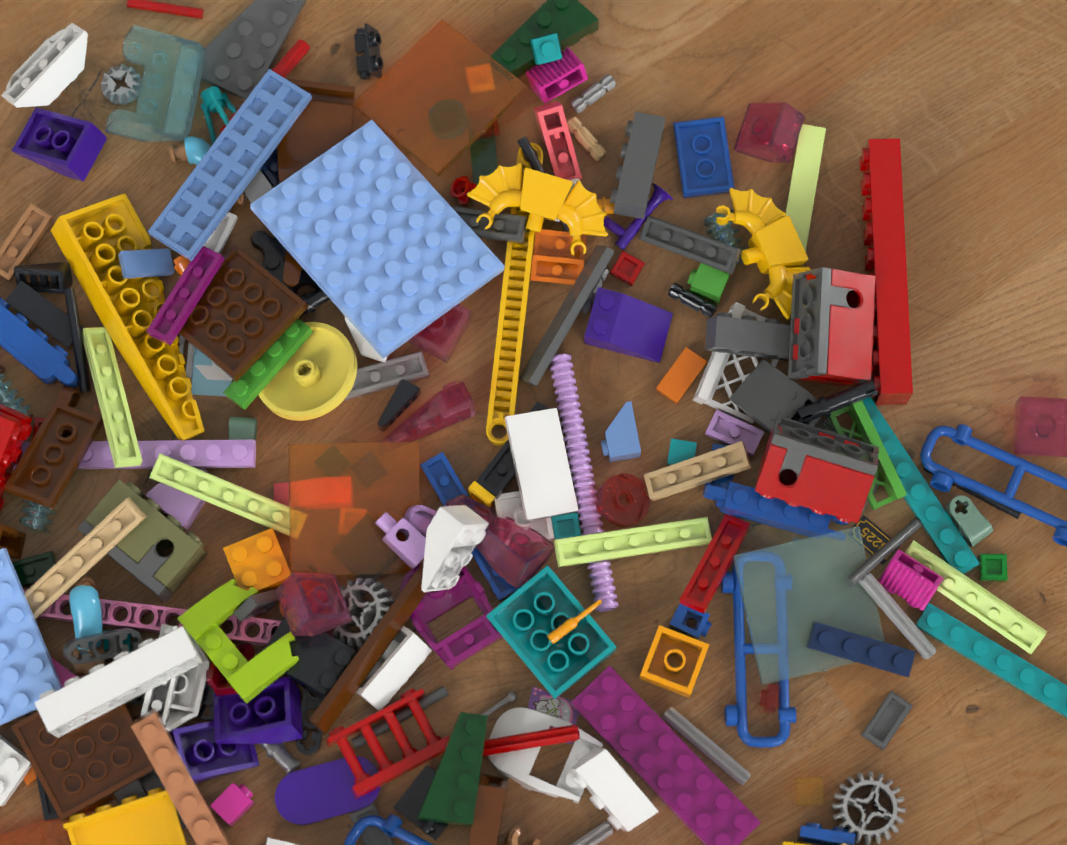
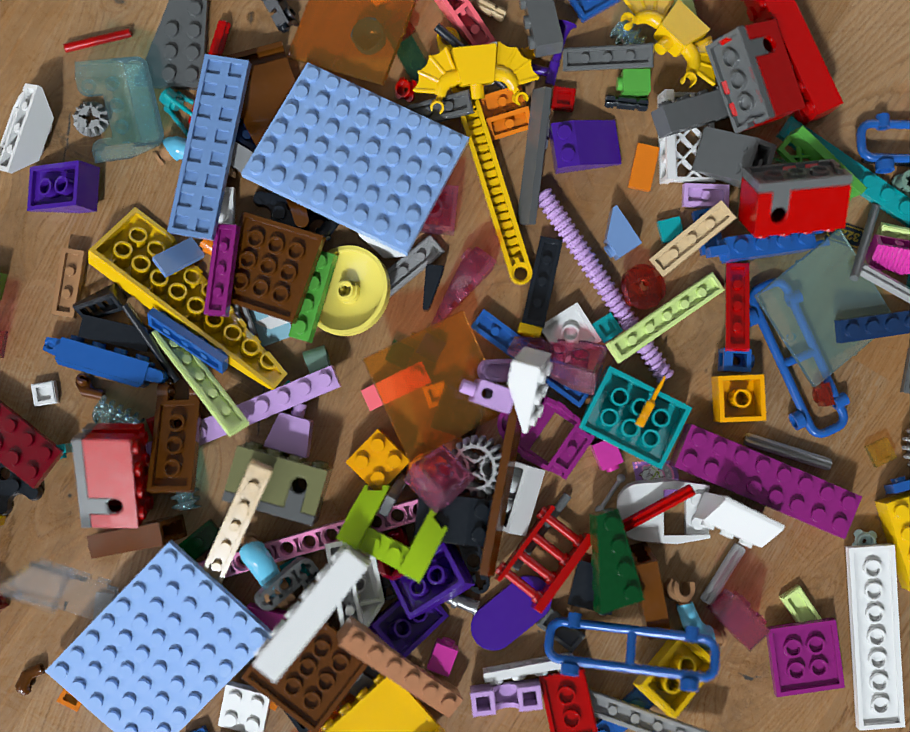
camera: 30 degrees left, 10 degrees up
(117, 352) = (184, 338): none -> blue plate
(221, 493) = (324, 418): yellowish green tile -> none
(505, 663) = (606, 455): none -> dark pink brick
(541, 464) = (567, 286): white tile -> none
(827, 405) = (779, 142): black pin -> none

